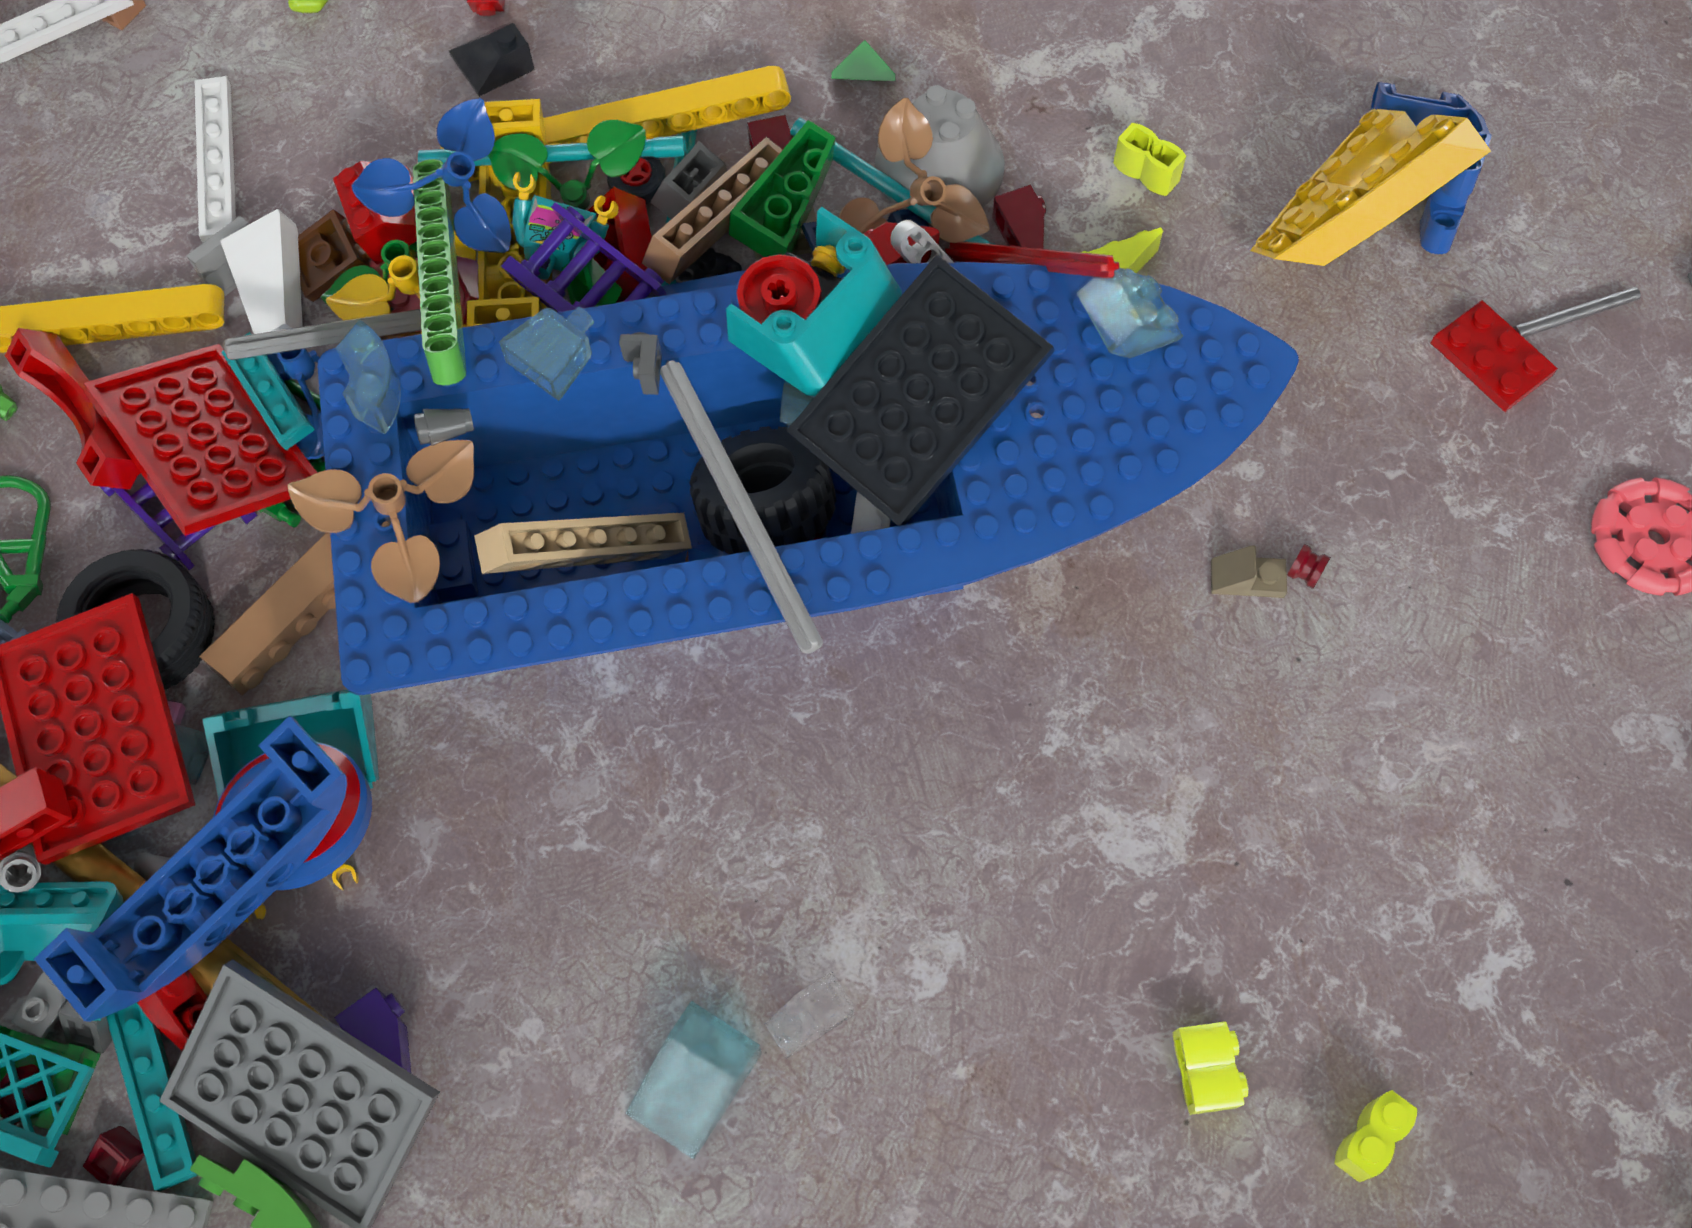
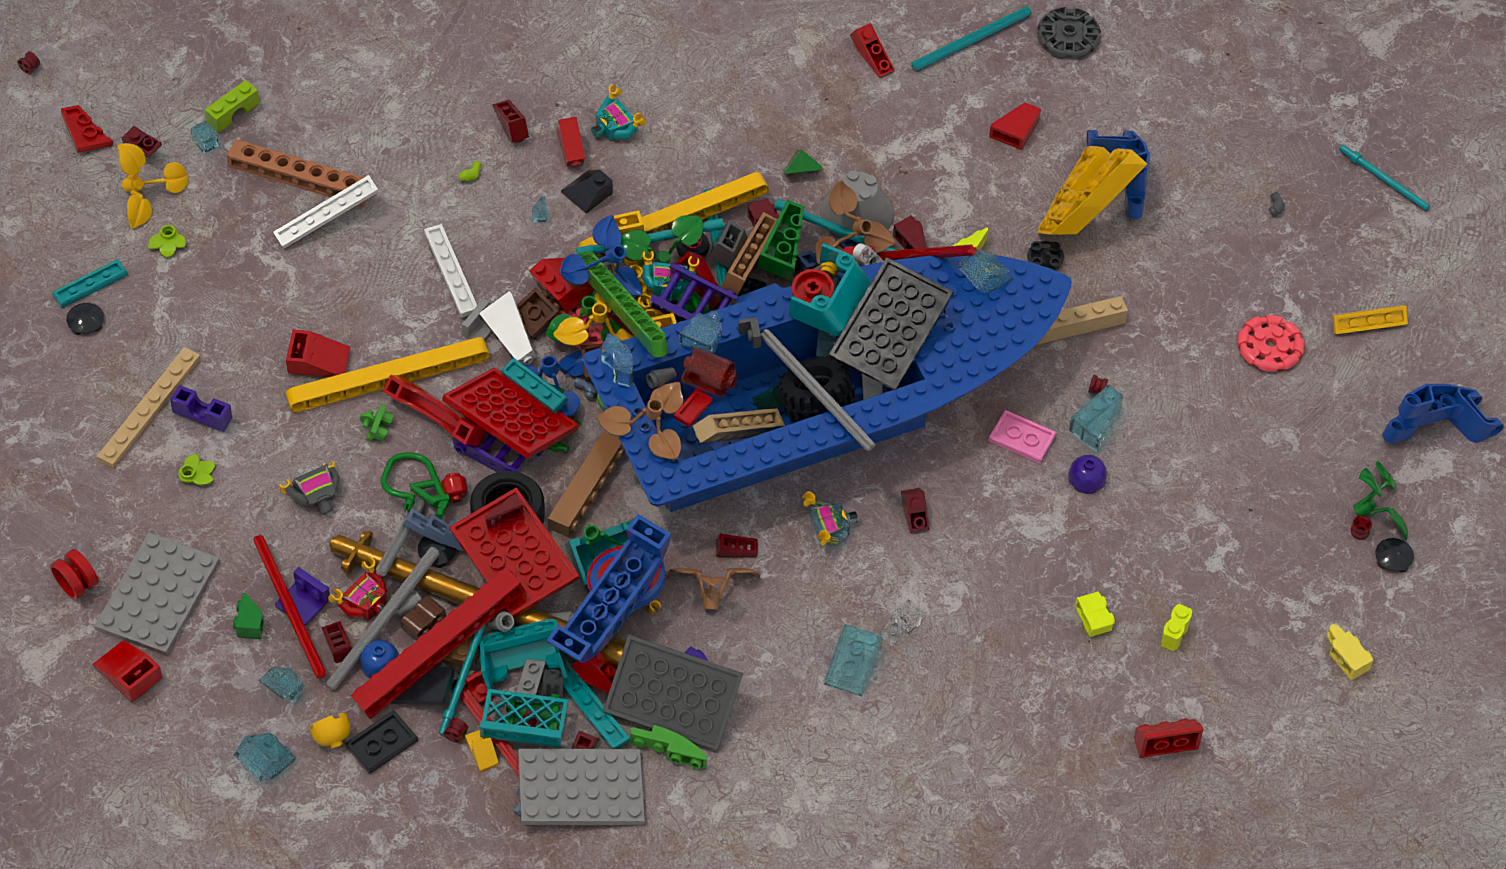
camera: 15 degrees left, 10 degrees down
(63, 559) = (455, 486): none -> red head
(90, 640) = (505, 511): none -> dark red slope
(257, 713) = (594, 536): none -> green plant
(318, 335) = (565, 349): light grey axle -> none
(402, 80) = (539, 211): none -> clear light blue slope
(456, 872) = (711, 596): none -> medium nougat plant
(486, 498) = (693, 408): none -> red tile
(529, 432) = (709, 372): none -> clear red cylinder
(546, 763) = (728, 551): none -> dark red slope
(673, 491) = (768, 399): none -> clear green panel
(727, 759) = (829, 520): none -> torso
(900, 763) = (915, 509): none -> dark red slope
(1142, 644) = (1022, 436): none -> bright pink tile
(1149, 159) = (970, 191): neon yellow brick -> none
(1247, 575) = (1067, 395): dark tan slope -> none
(1252, 56) = (1016, 126): none -> red slope
(1254, 747) = (1087, 474): none -> dark purple cylinder
(1258, 296) = (1046, 254): none -> black dish
(1293, 632) = (1096, 417): none -> clear light blue wedge
(1319, 429) = (1087, 319): none -> tan brick
(1493, 355) = (1174, 267): red plate -> none
(1578, 312) = (1225, 232): flat silver bar -> none

